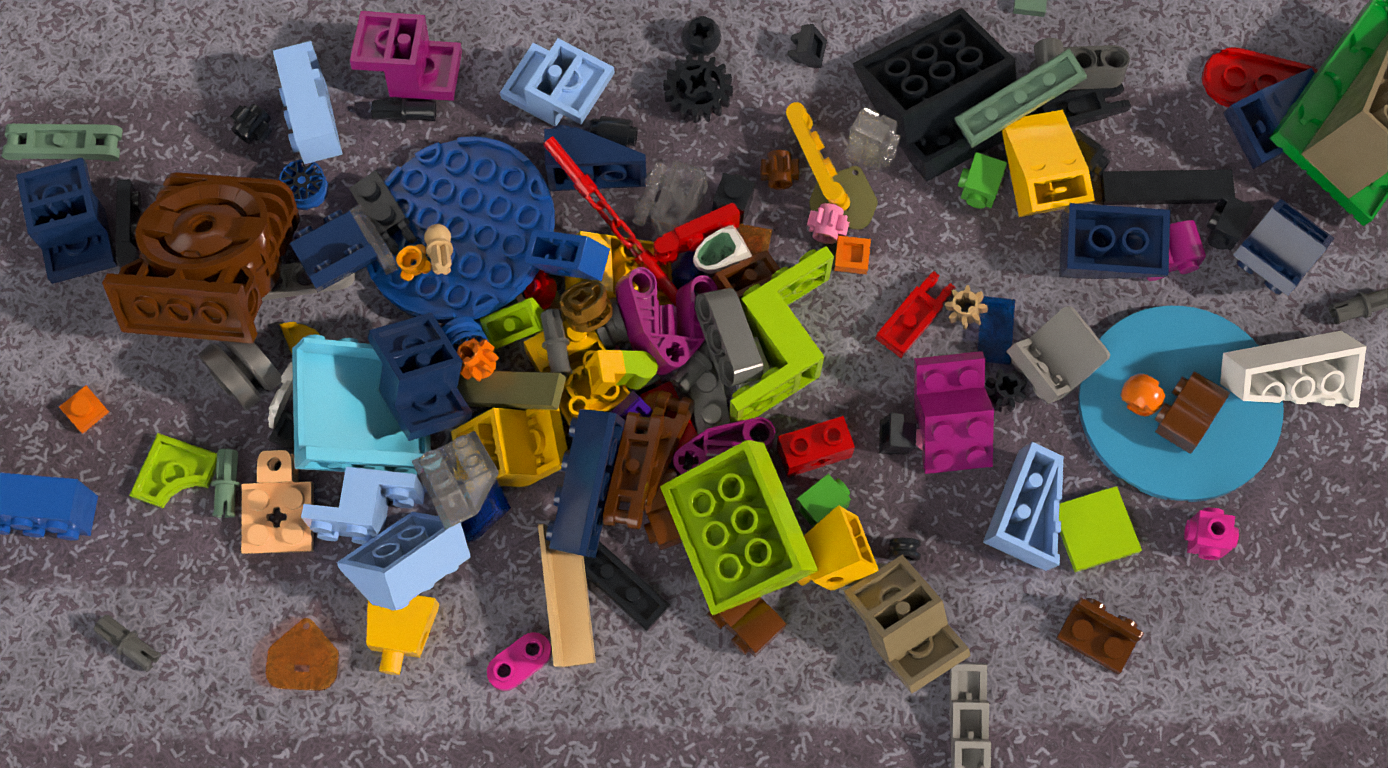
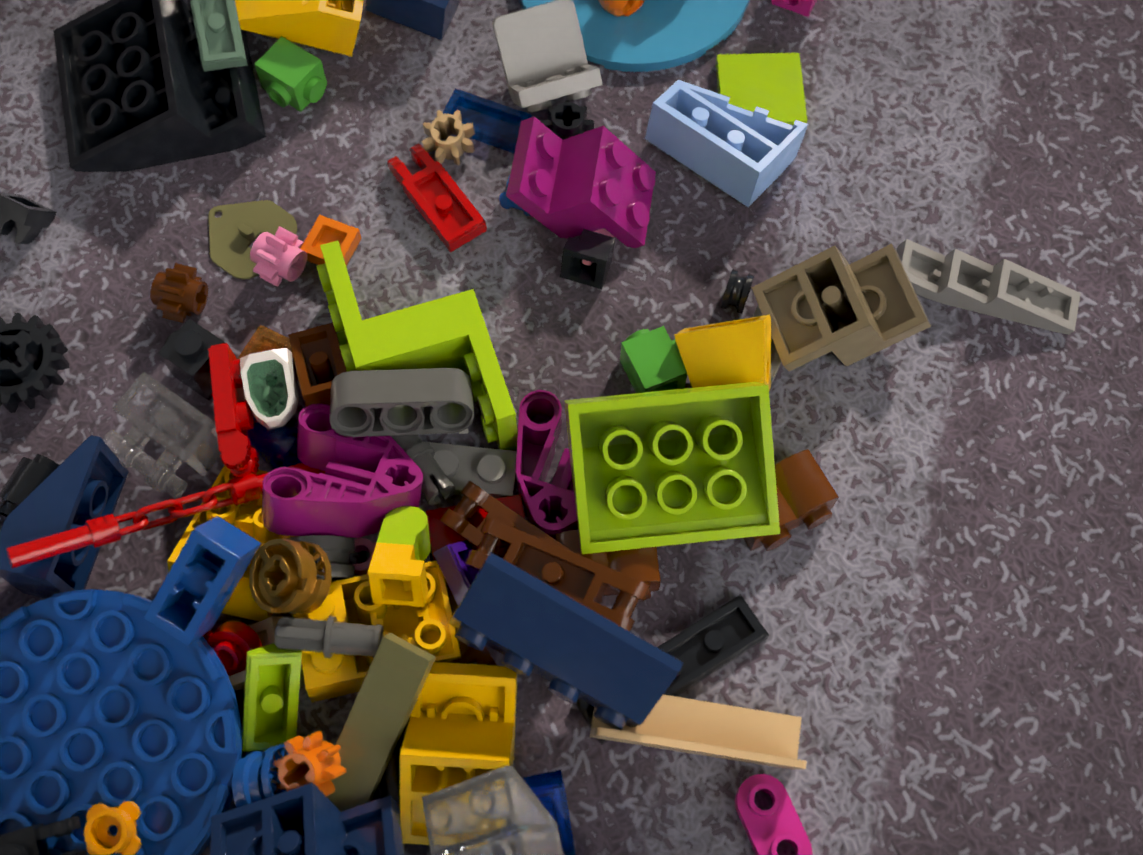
camera: 75 degrees left, 5 degrees down
(439, 248) = (108, 781): tan axle -> none
(811, 146) = (166, 246): yellow plate -> none
(815, 446) = (577, 349): red brick -> none
(872, 141) = (189, 168): clear brick -> none
(1099, 634) = (887, 121): reddish brown bracket -> none

